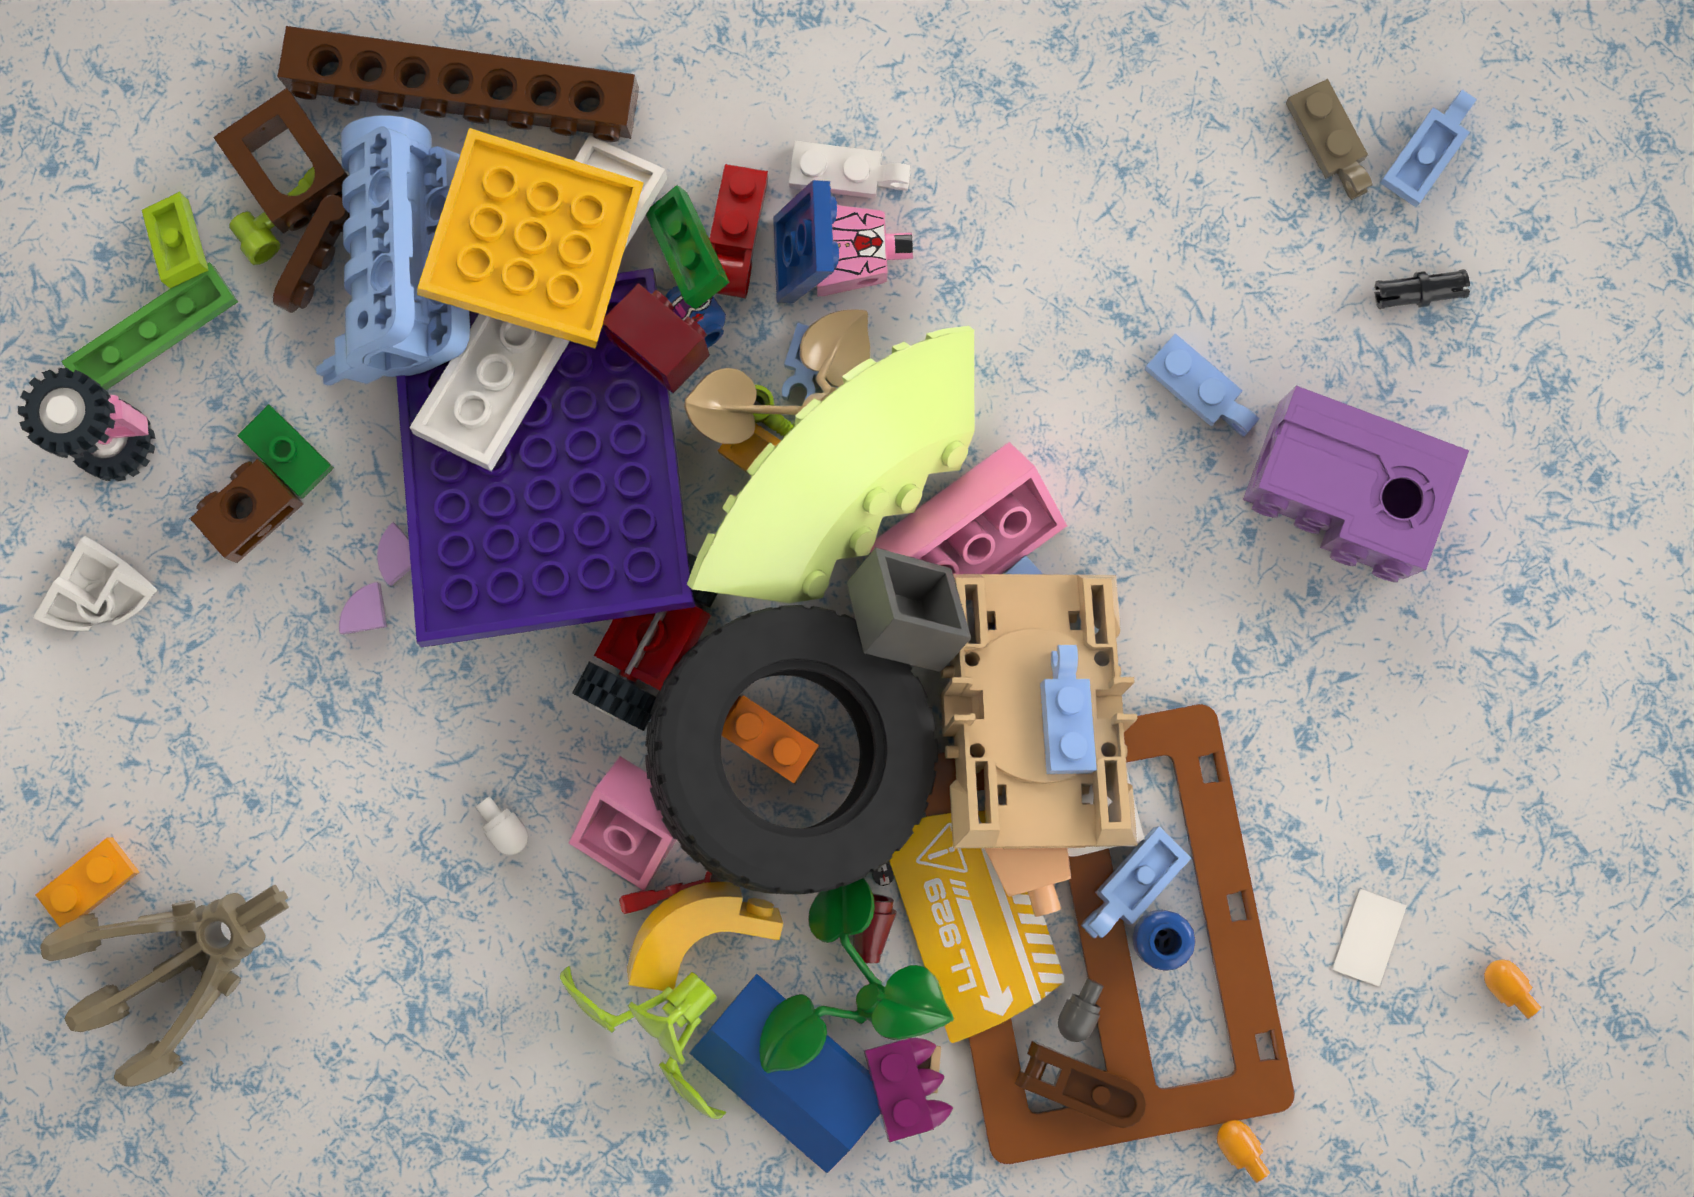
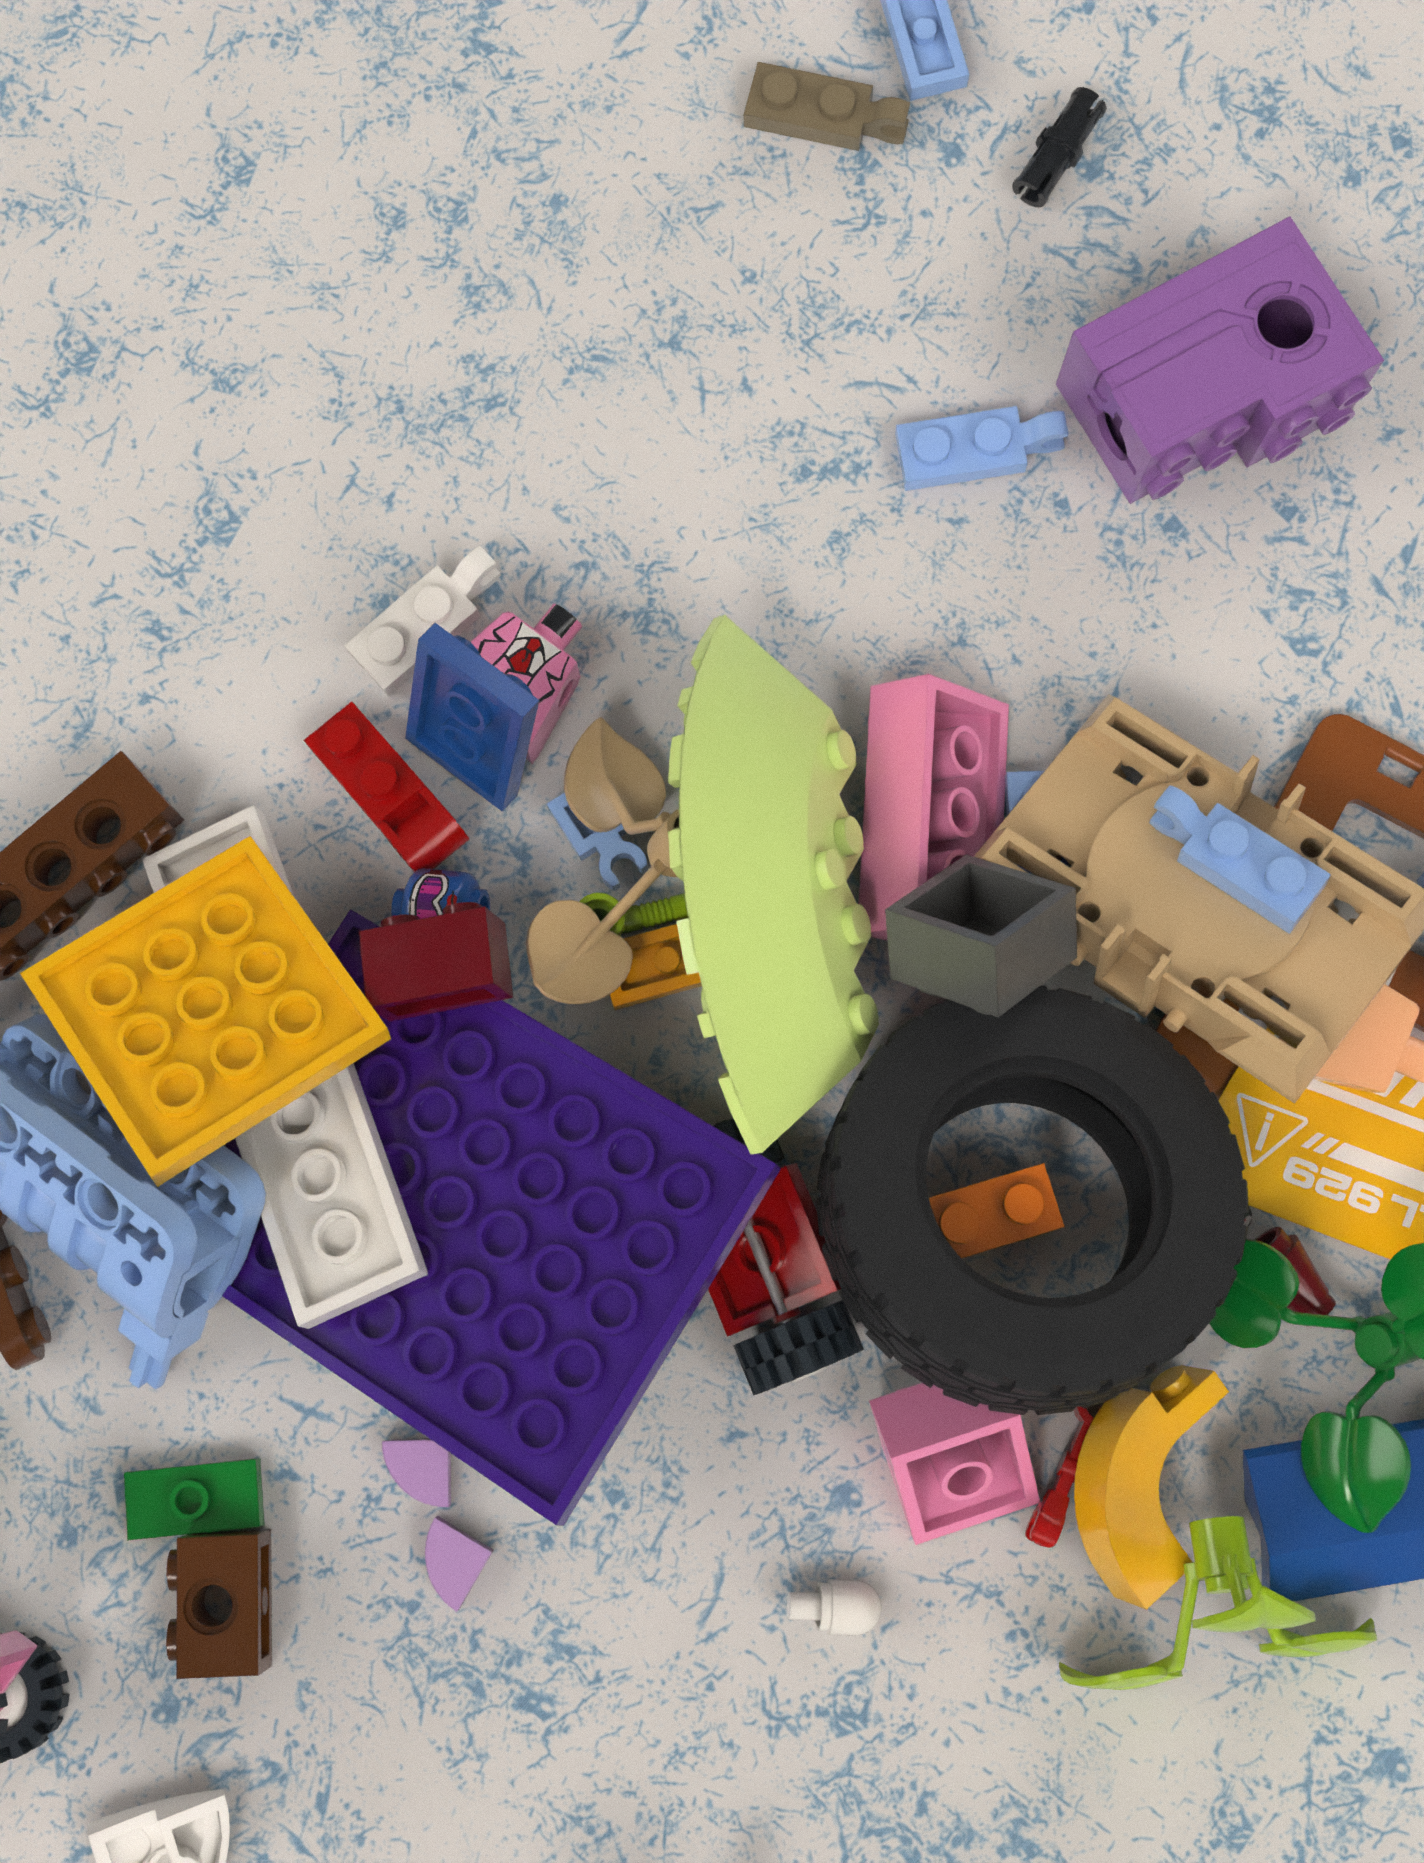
camera: 50 degrees left, 5 degrees down
(686, 247) = (362, 851): green plate -> none

